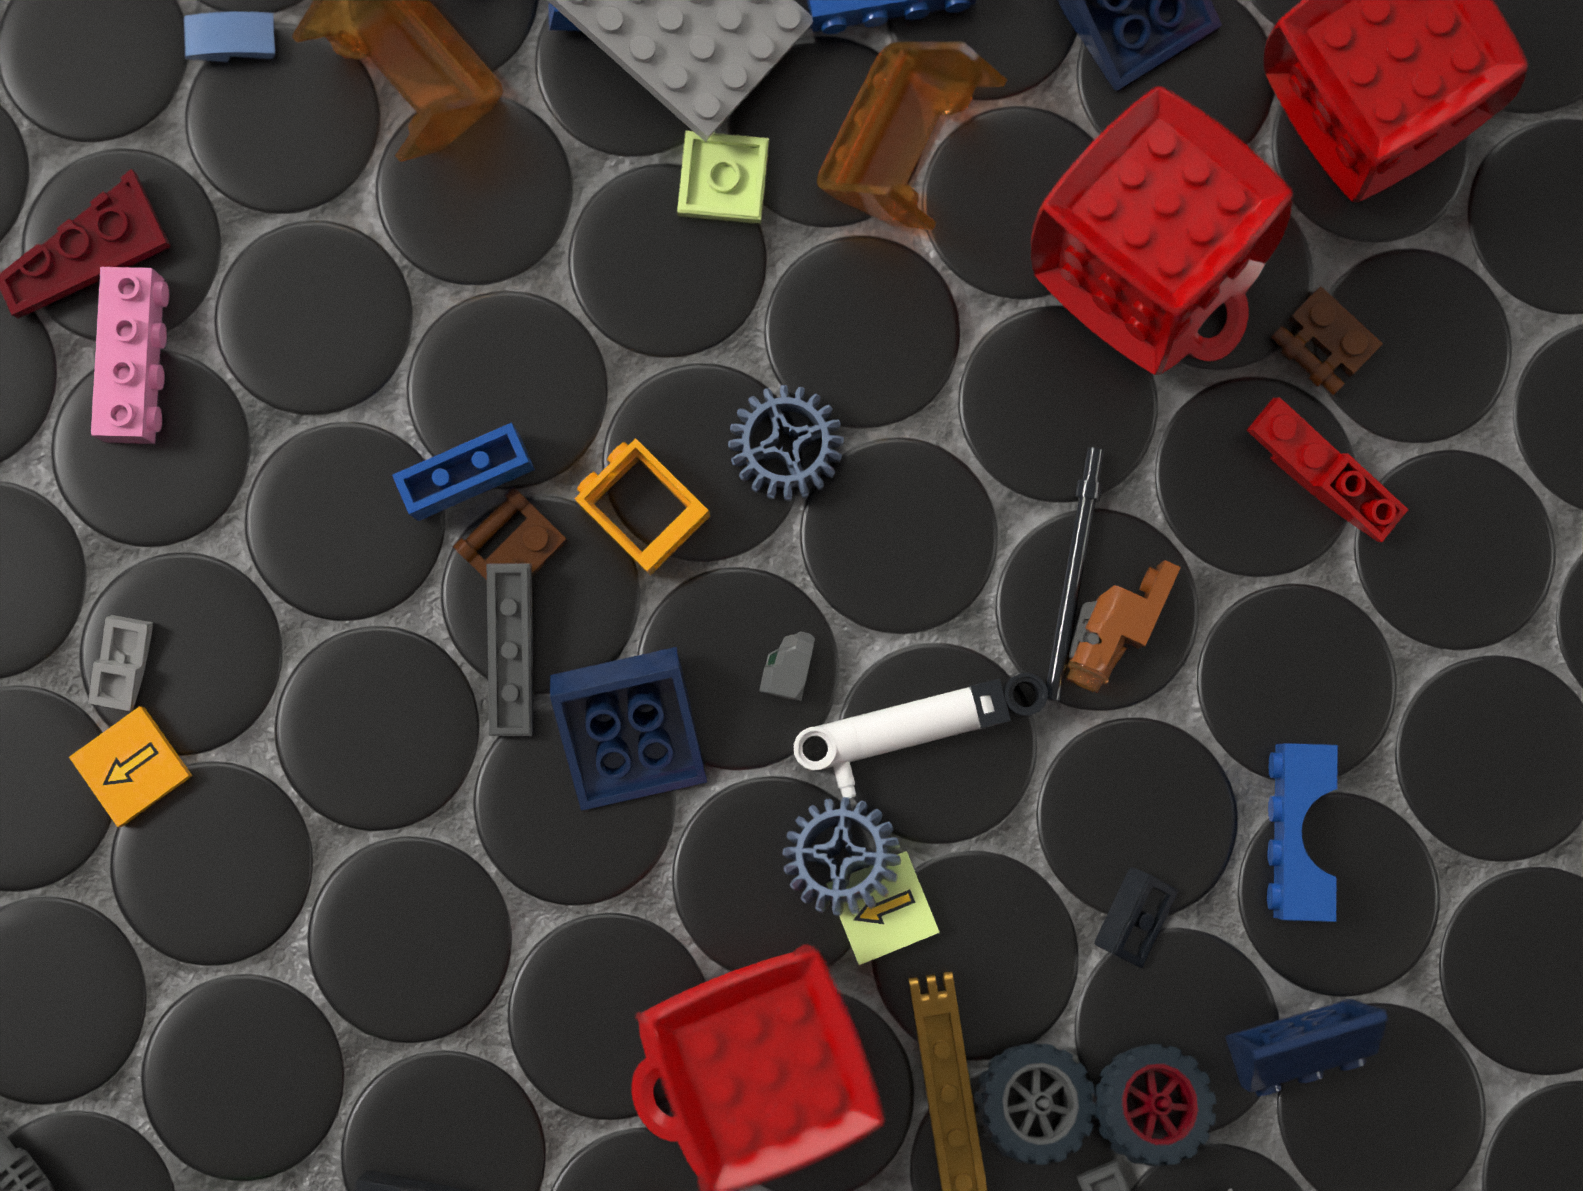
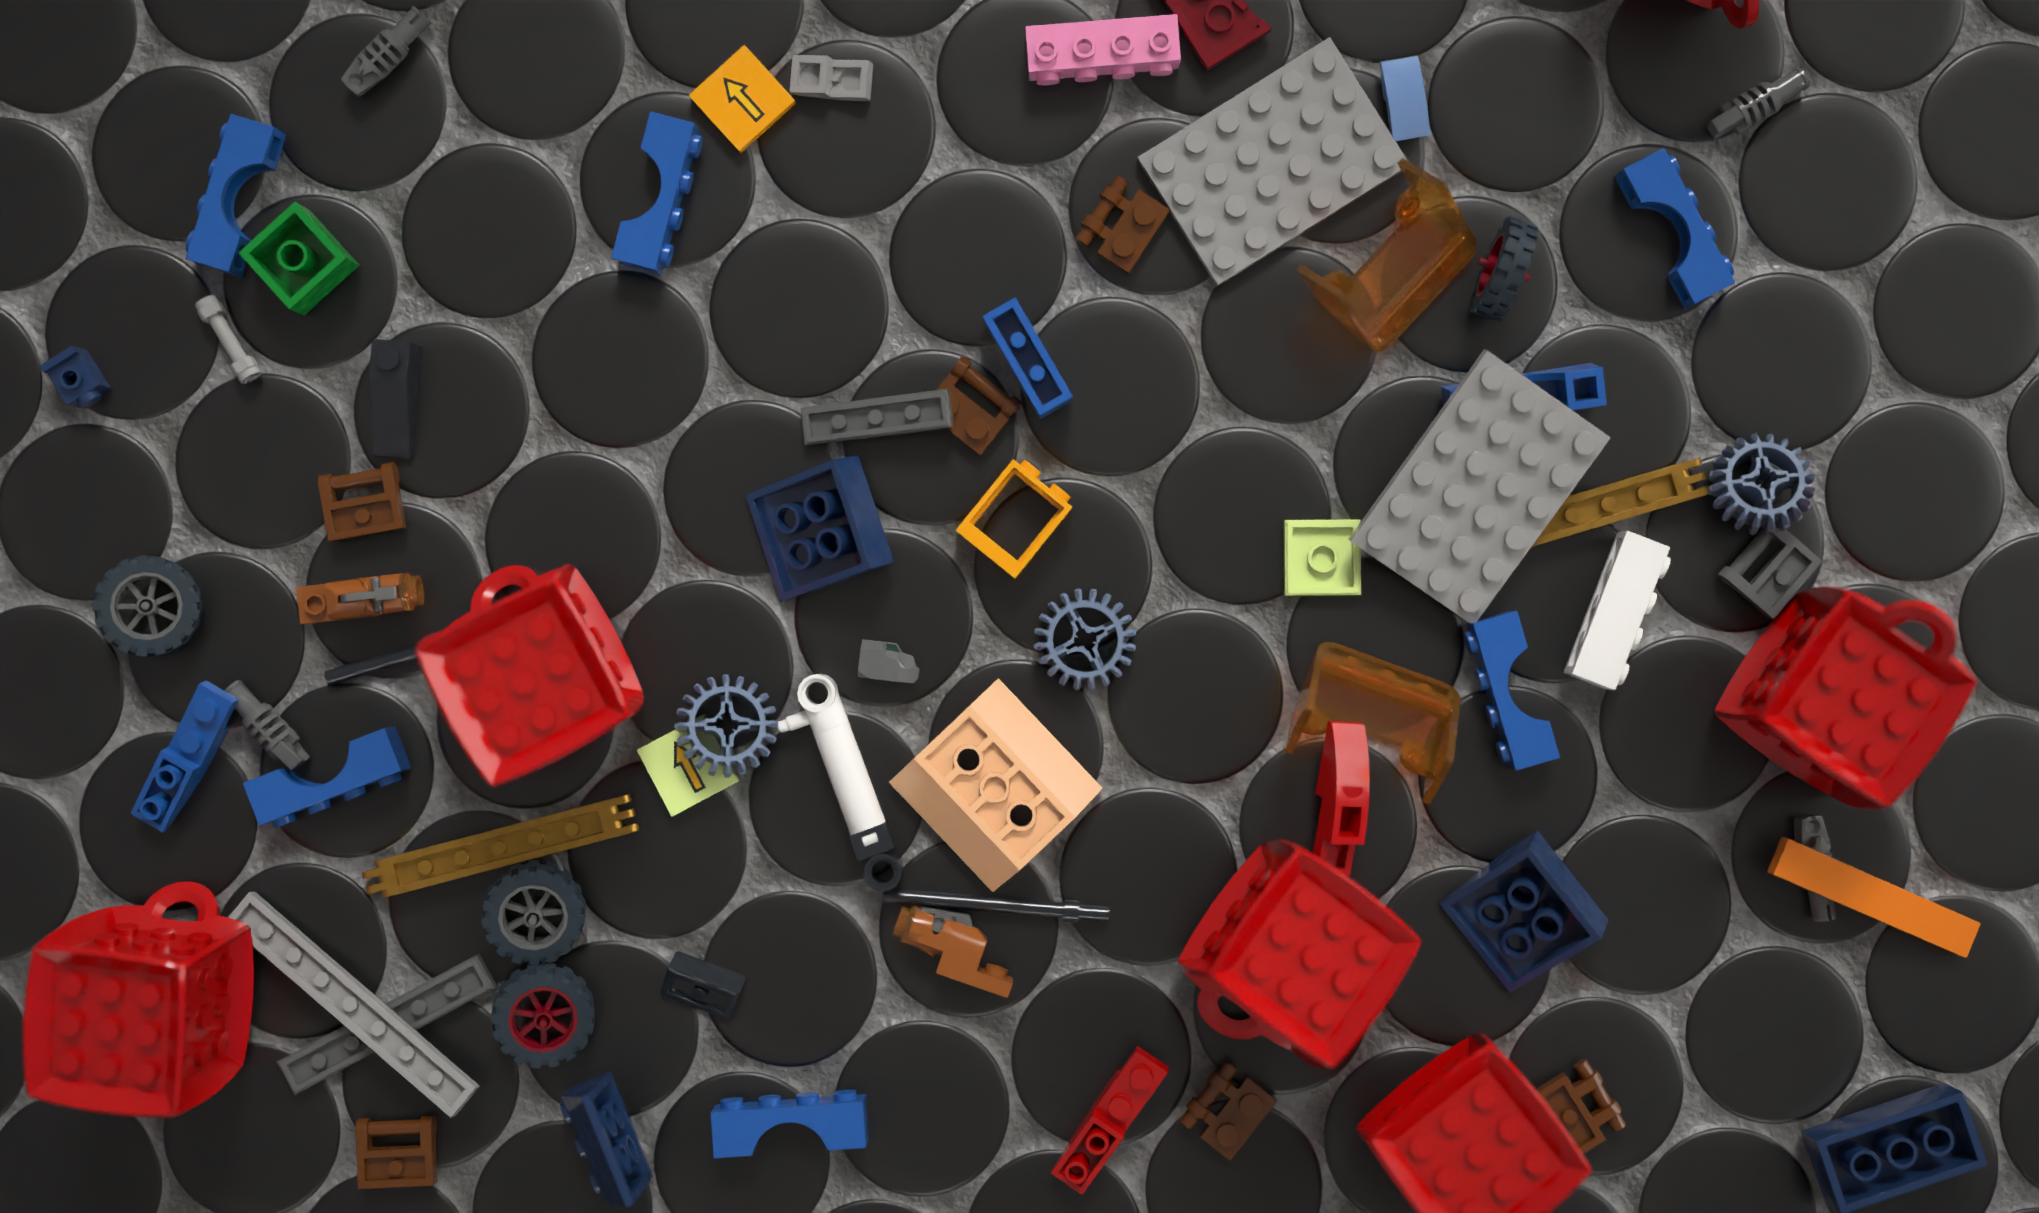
camera: 80 degrees right, 5 degrees up
(274, 893) = (646, 239): none -> blue arch
(280, 186) = (1273, 161): none -> light grey plate
(338, 346) = (1132, 231): none -> reddish brown plate
(962, 581) = (1016, 767): none -> light nougat slope
(980, 174) = (1344, 793): none -> red slope

